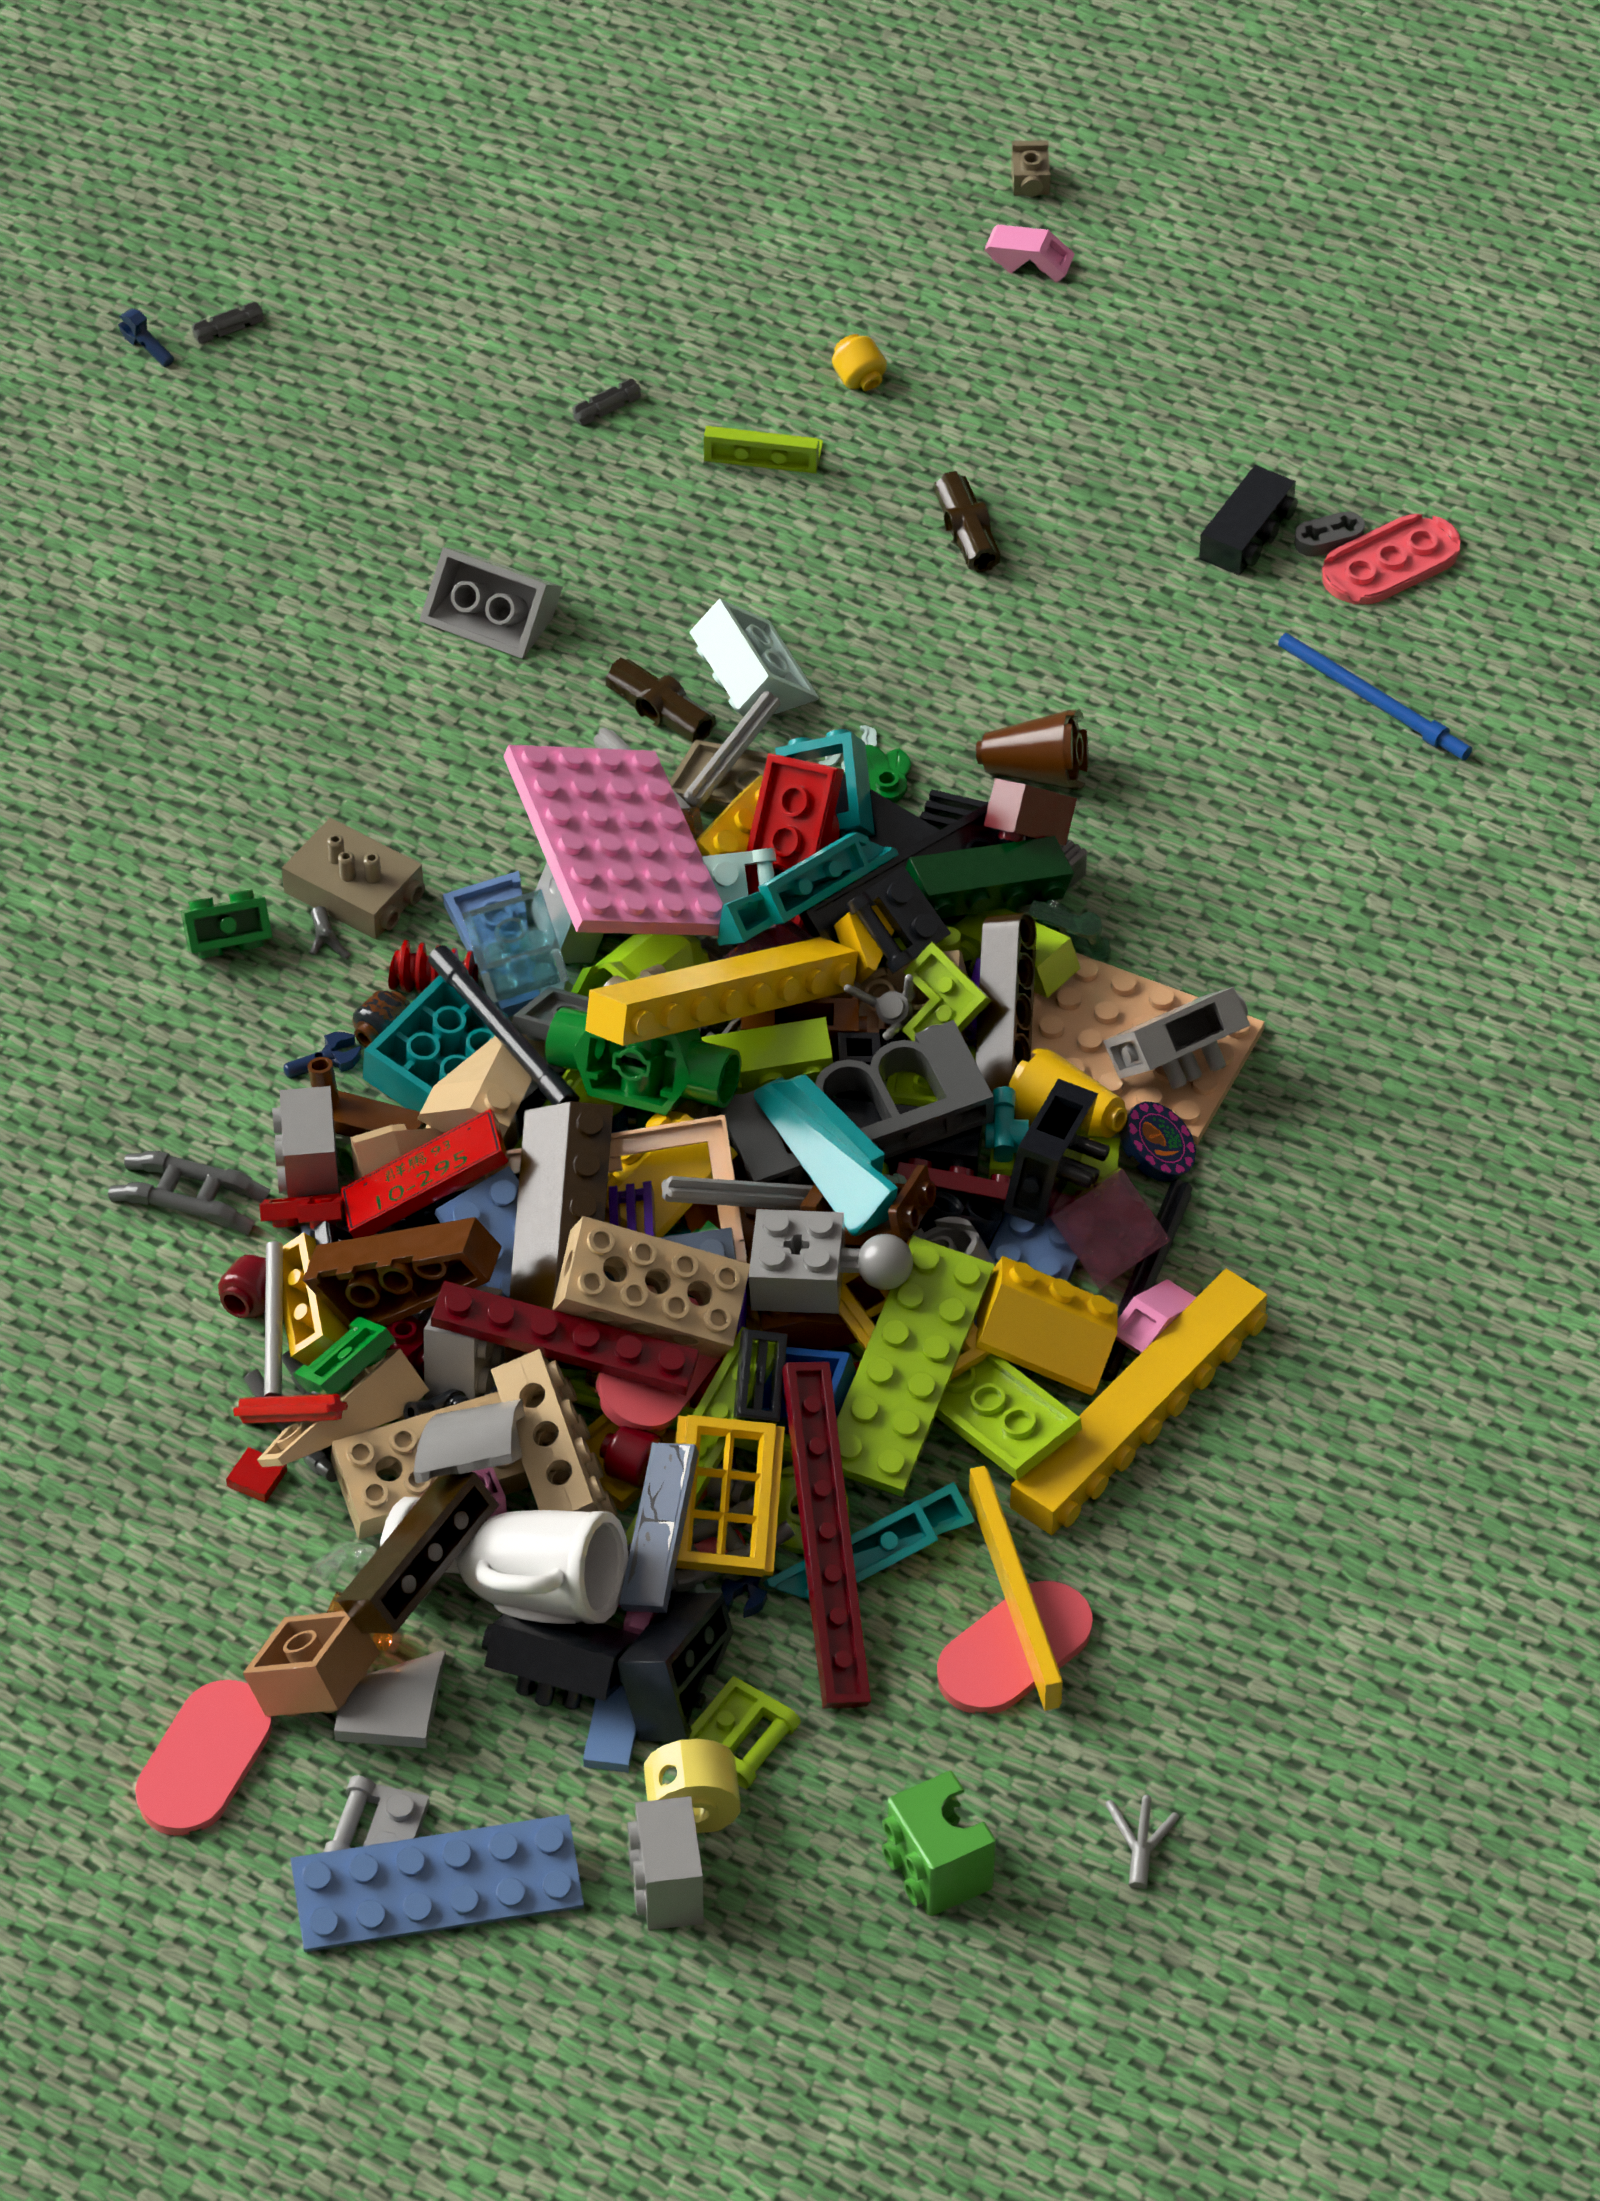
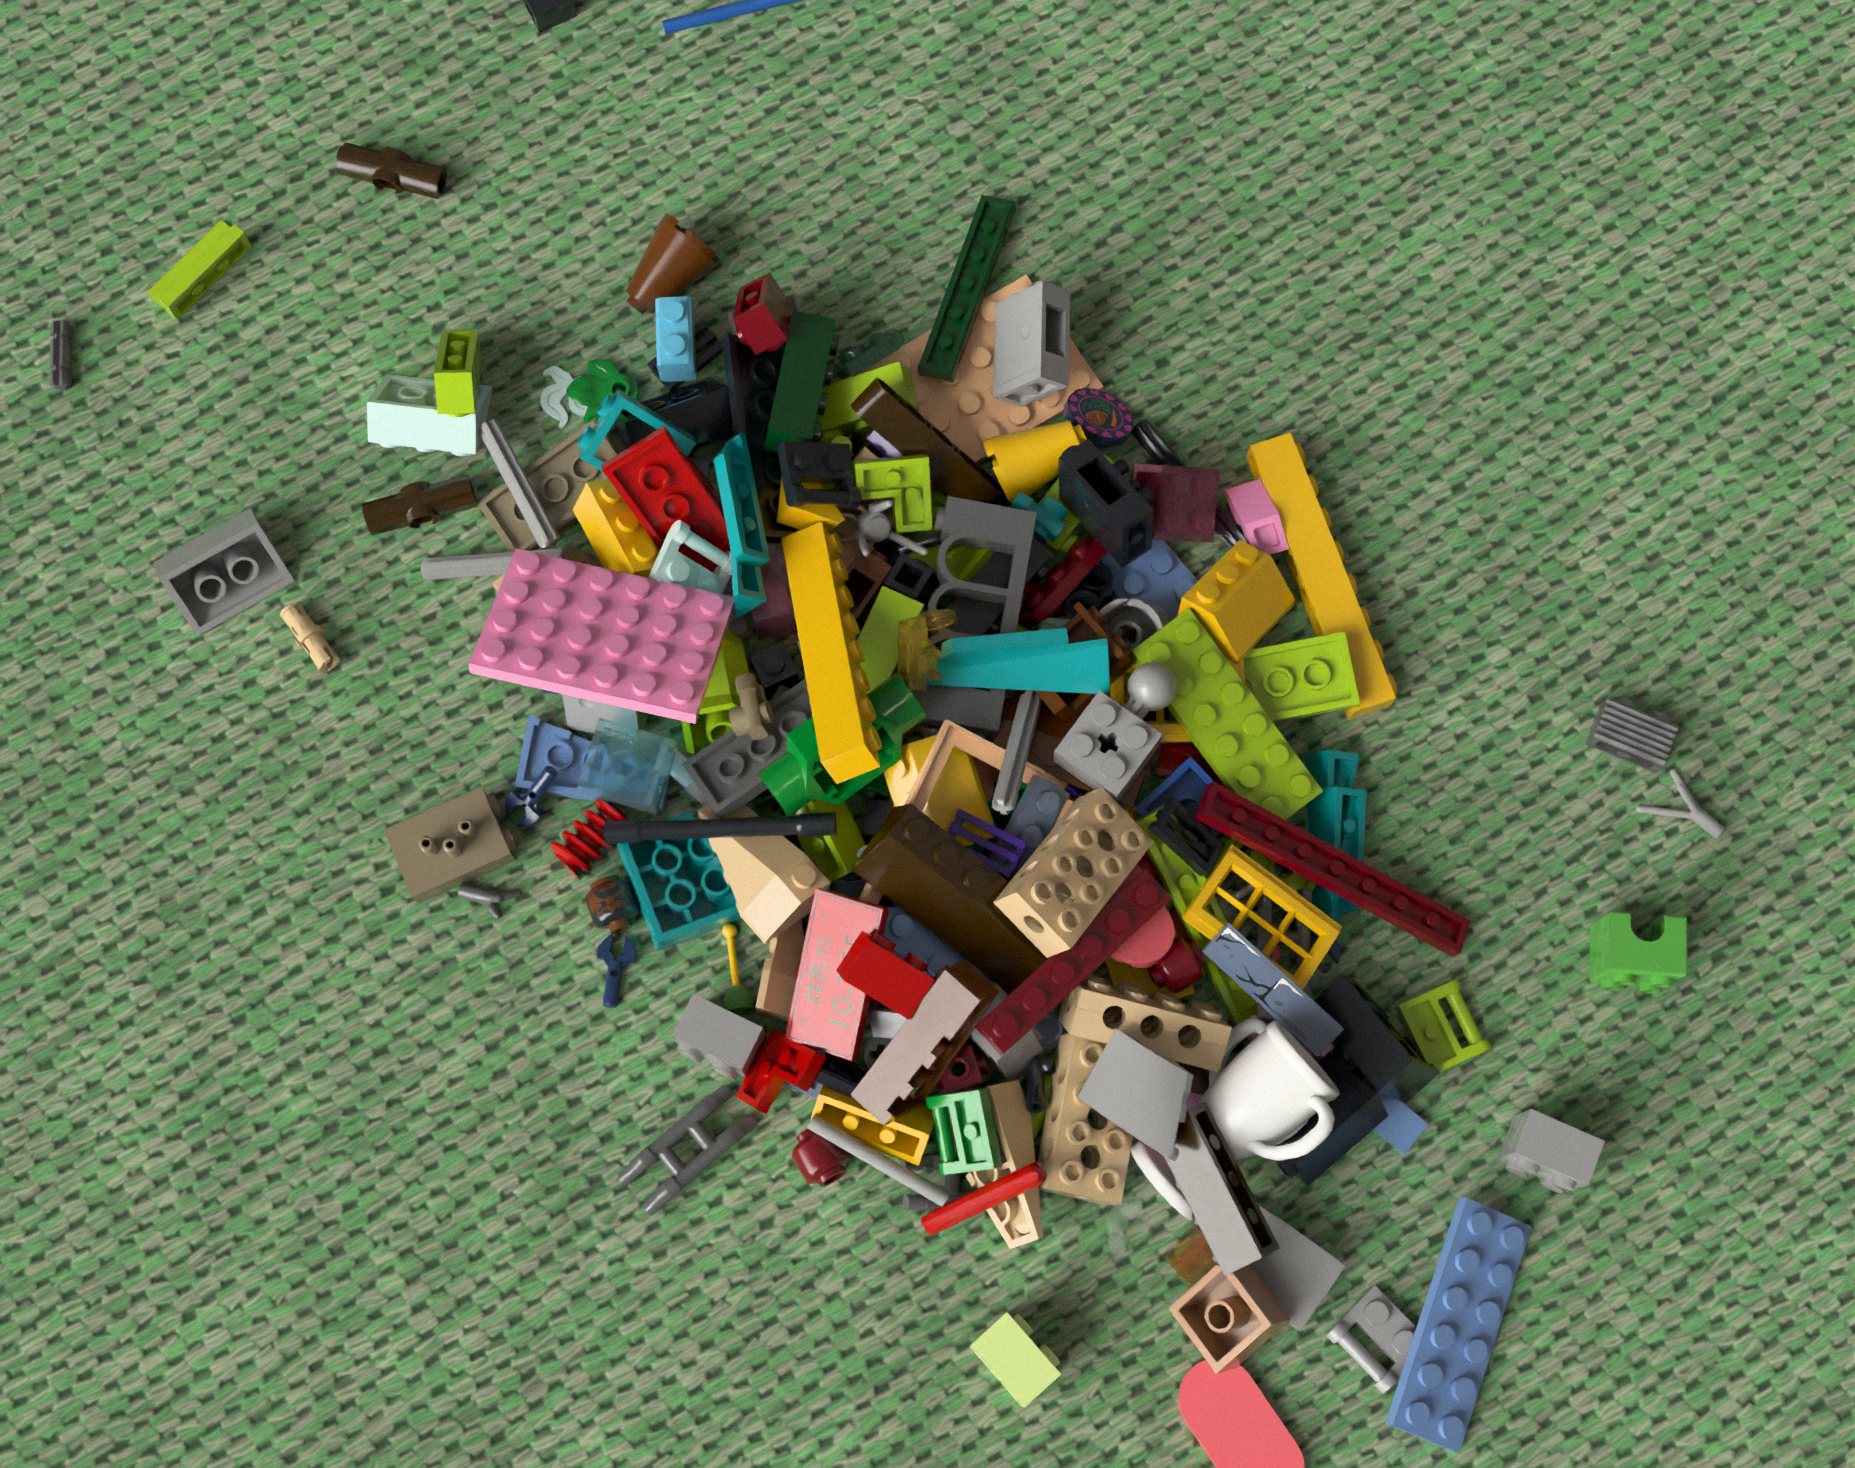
camera: 60 degrees left, 25 degrees up
(153, 1518) = (1016, 1358): none -> yellowish green brick
(236, 922) = (437, 972): green brick -> none
(252, 1478) = (996, 1252): red tile -> none
(356, 1113) = (703, 973): reddish brown piece -> none
(433, 908) = (531, 798): none -> dark blue bar
(441, 1180) = (886, 974): none -> red brick
(475, 690) = (310, 637): none -> tan pin
(705, 1773) = (1492, 1095): light yellow piece -> none
(786, 1048) = (916, 649): none -> clear yellow piece
(799, 645) = (457, 372): none -> lime brick
(859, 362) = (164, 143): yellow head -> none
(962, 785) = (675, 339): none -> medium azure brick
(986, 1662) = (1476, 792): coral tile -> none
(1015, 1588) = (1444, 763): yellow tile -> none
(1182, 1748) = (1632, 734): none -> flat silver brick
(1203, 977) = (966, 288): none -> dark green tile

